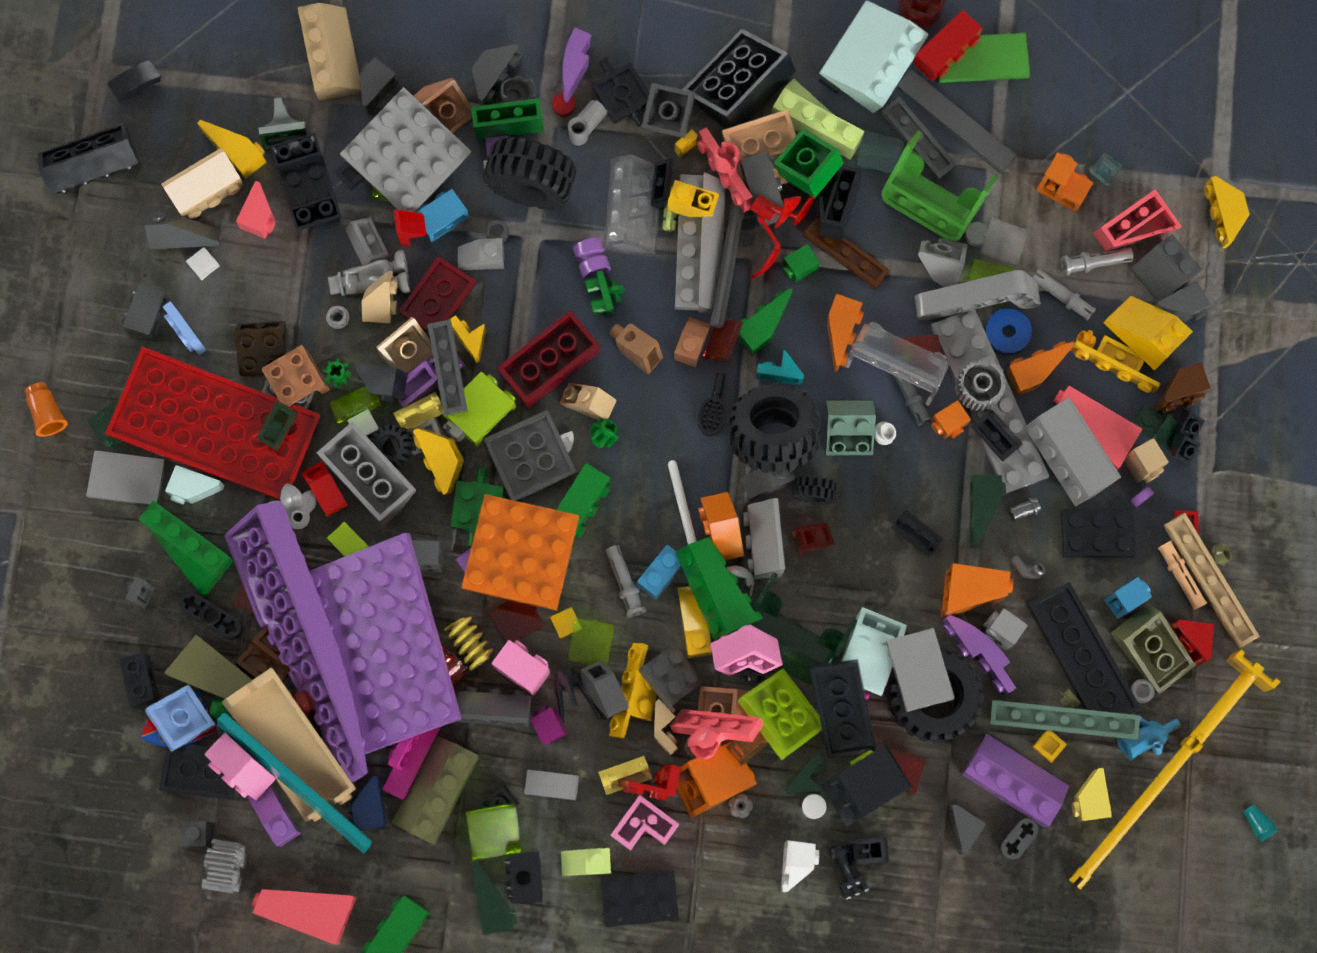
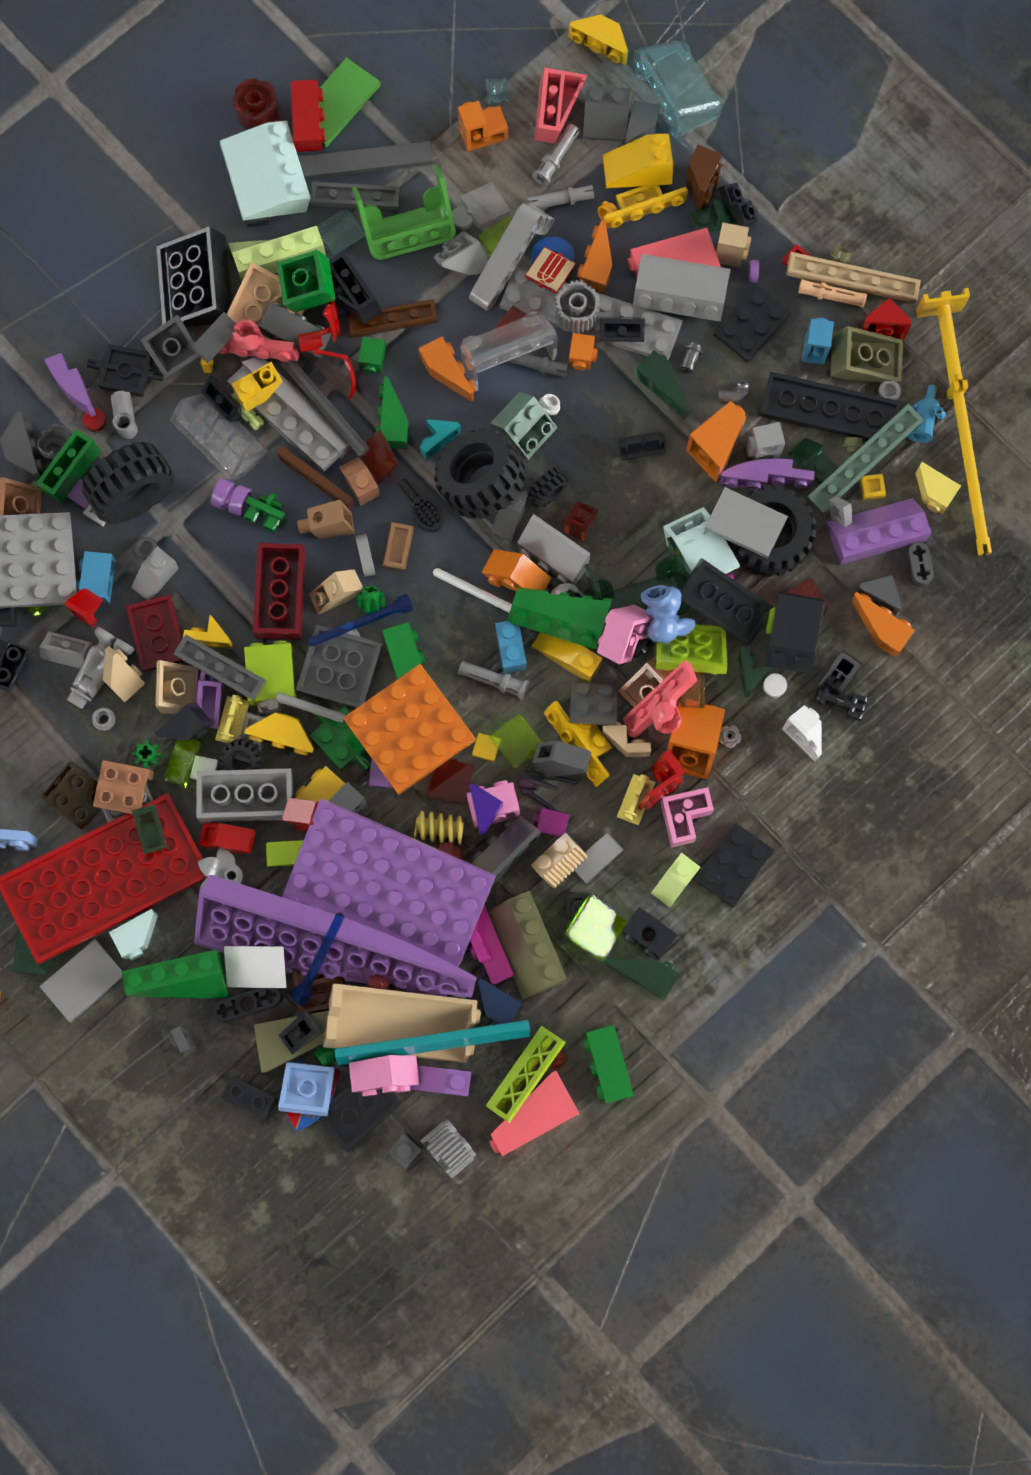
camera: 45 degrees left, 0 degrees up
(218, 675) = (300, 1032): none -> black slope
(242, 597) = (255, 966): none -> white sticker
(251, 649) = (302, 992): none -> clear blue piece
(331, 872) = (522, 1072): none -> lime fence
(364, 889) = (559, 1060): none -> clear red plate
(386, 525) = (300, 813): none -> slope
(422, 526) = (323, 785): none -> yellow slope
(477, 462) = (310, 707): none -> light grey bar
(507, 664) = (485, 807): none -> dark purple slope
(522, 757) = (559, 860): none -> tan brick
(619, 459) = (401, 605): none -> clear blue piece
(636, 398) = (365, 555): none -> light grey beam
(663, 307) = (314, 477): none -> reddish brown tile
(666, 417) = (398, 546): none -> medium nougat tile
(703, 135) = (215, 337): none -> dark grey slope
(792, 663) = (663, 605): none -> medium blue animal
(937, 857) = (883, 627): none -> orange slope
(995, 338) = (550, 270): none -> piece
(1003, 737) = (840, 511): none -> light grey plate
(1028, 679) = (811, 458): none -> clear green slope
(1242, 303) = (678, 85): none -> clear light blue windscreen

